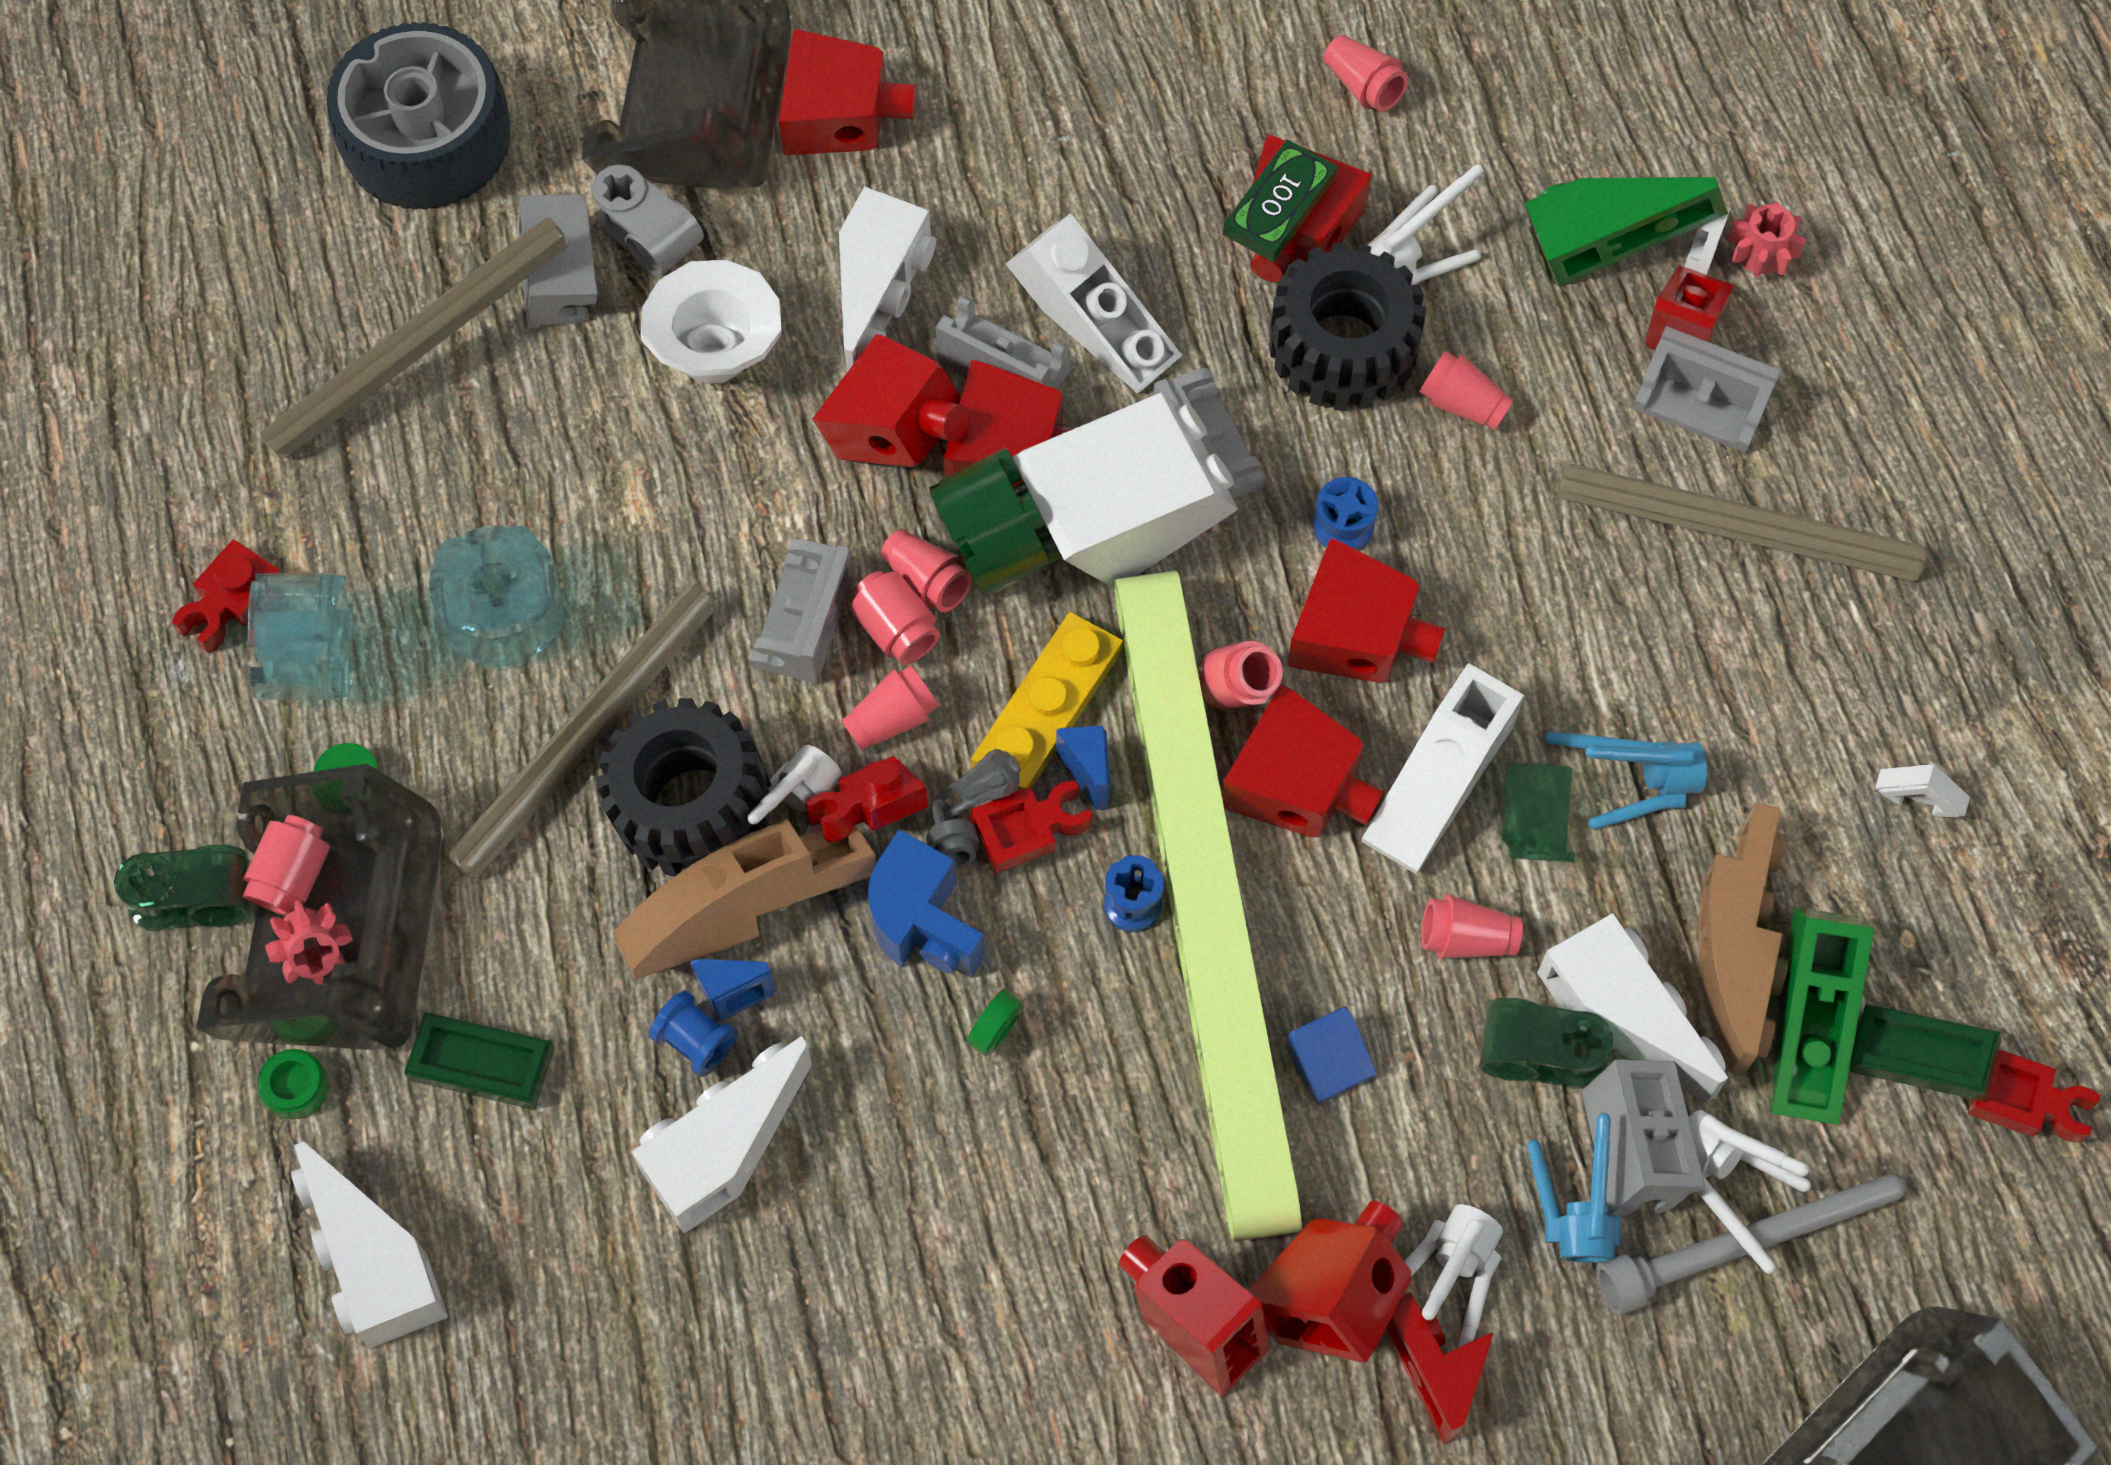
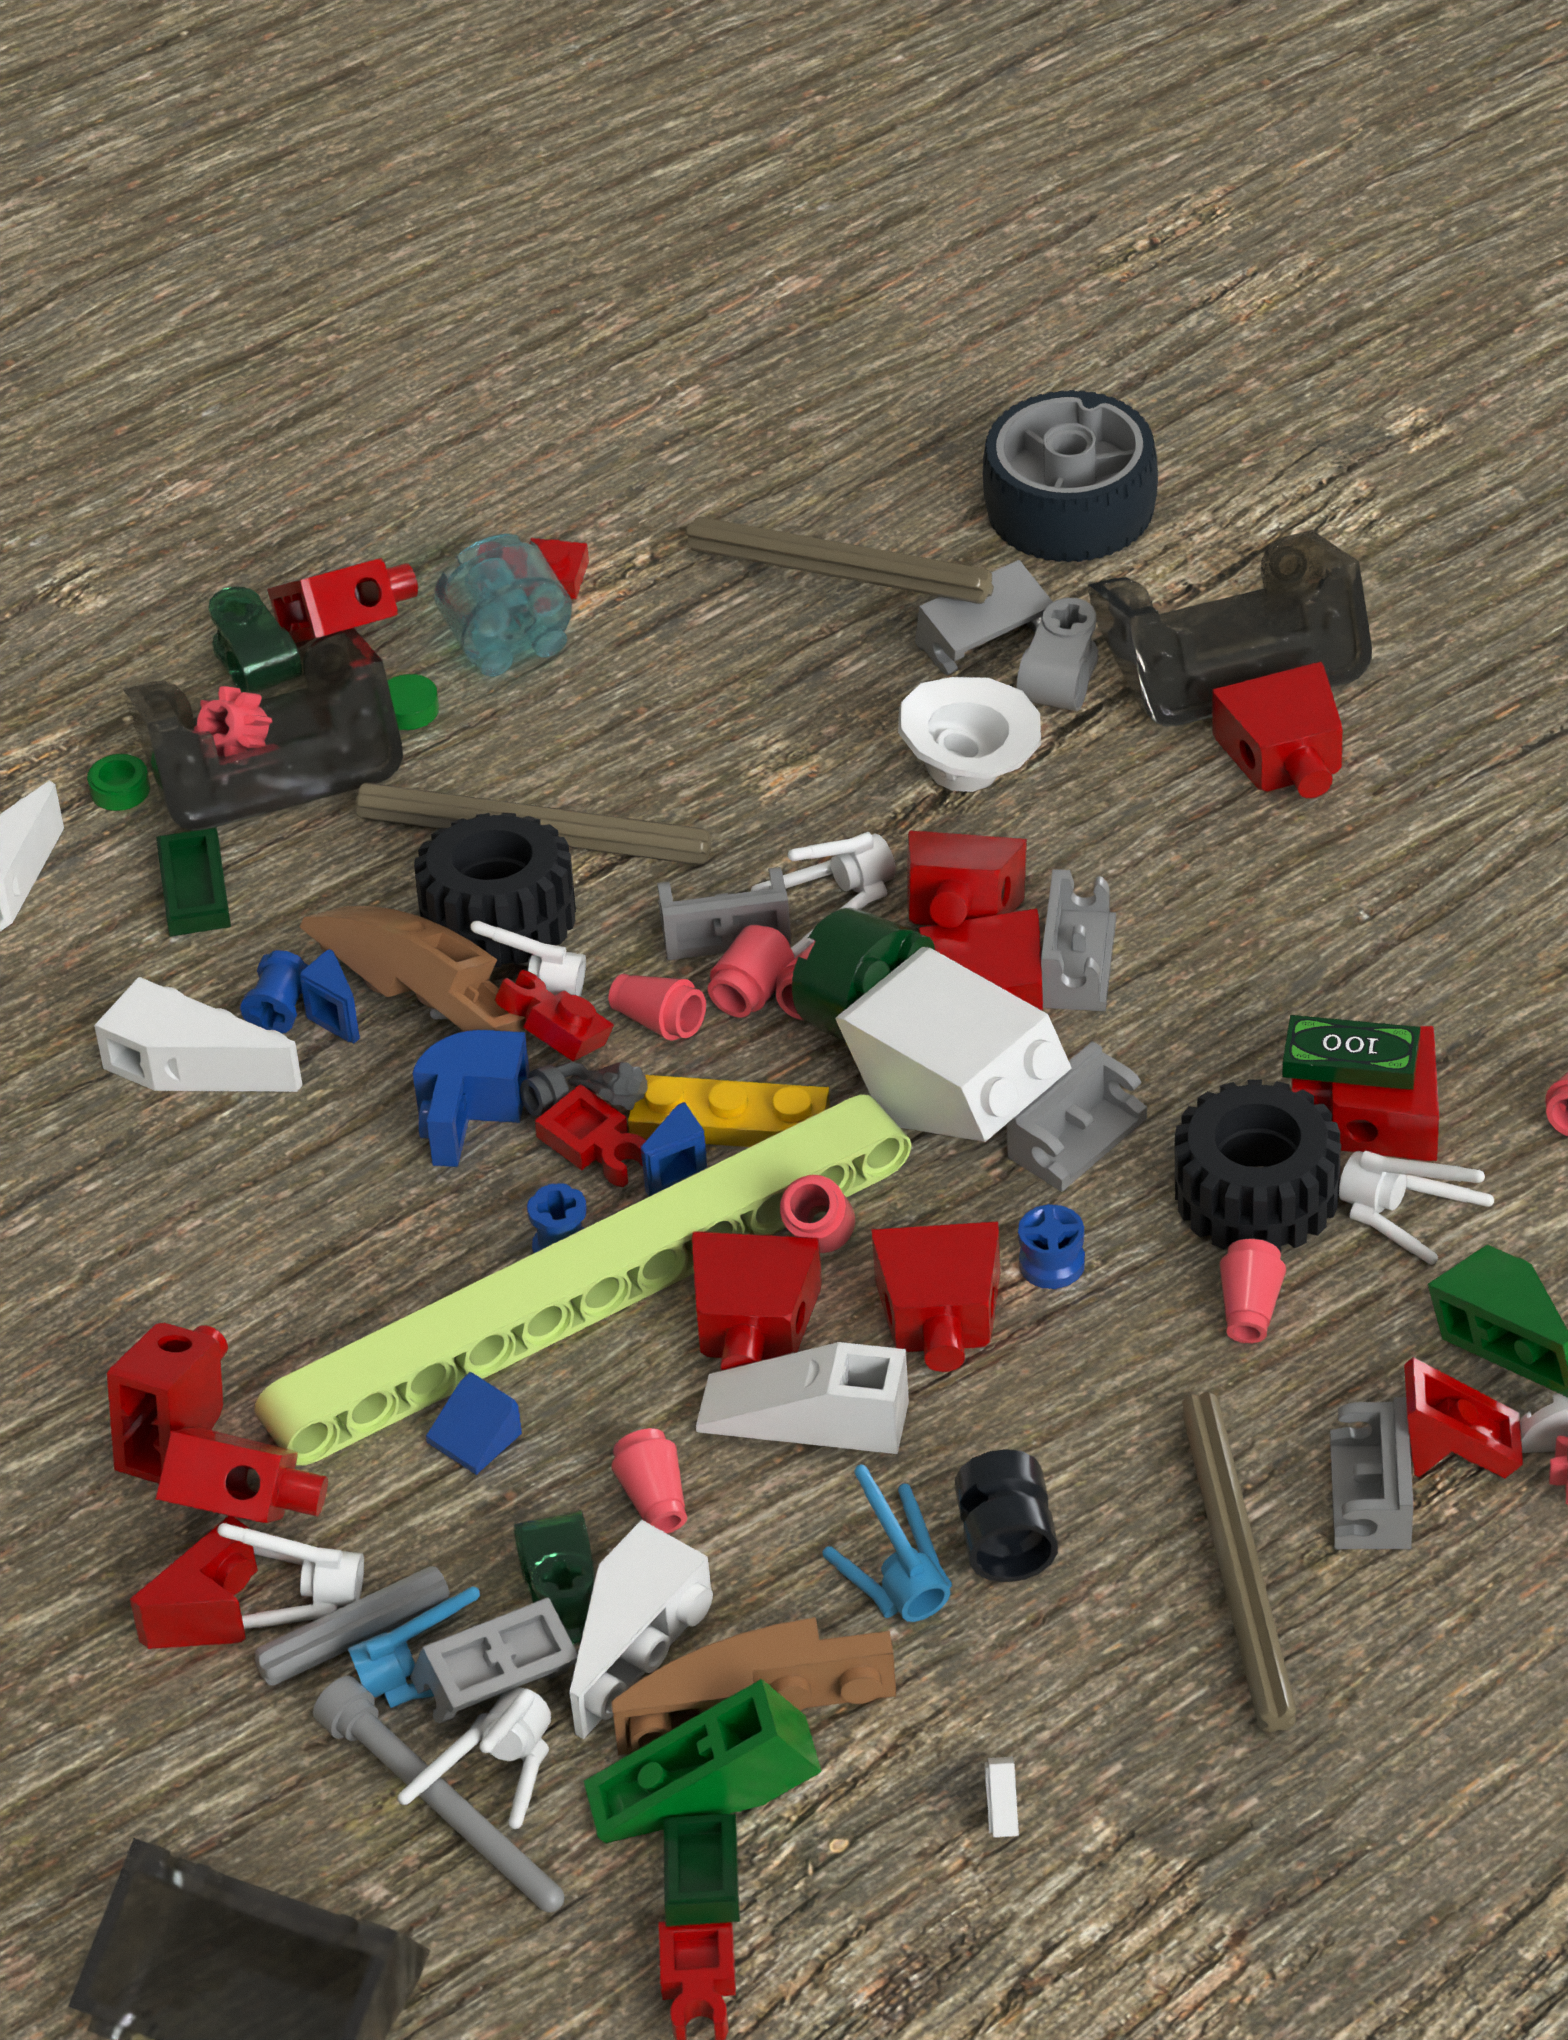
camera: 70 degrees right, 20 degrees down
(194, 783) = (342, 598): none -> red torso
(285, 864) = (296, 685): coral brick -> none
(496, 596) = (618, 711): clear light blue brick -> none
(809, 484) = (858, 864): none -> white plant
(879, 256) = (1103, 825): white slope -> none
(995, 1022) = (385, 1178): green tile -> none
(1093, 303) = (1173, 982): white slope -> none
(1523, 1246) = (351, 1625): none -> light grey axle
(1536, 812) = (800, 1493): clear green bracket -> none
(1645, 667) = (1006, 1515): none -> black wheel

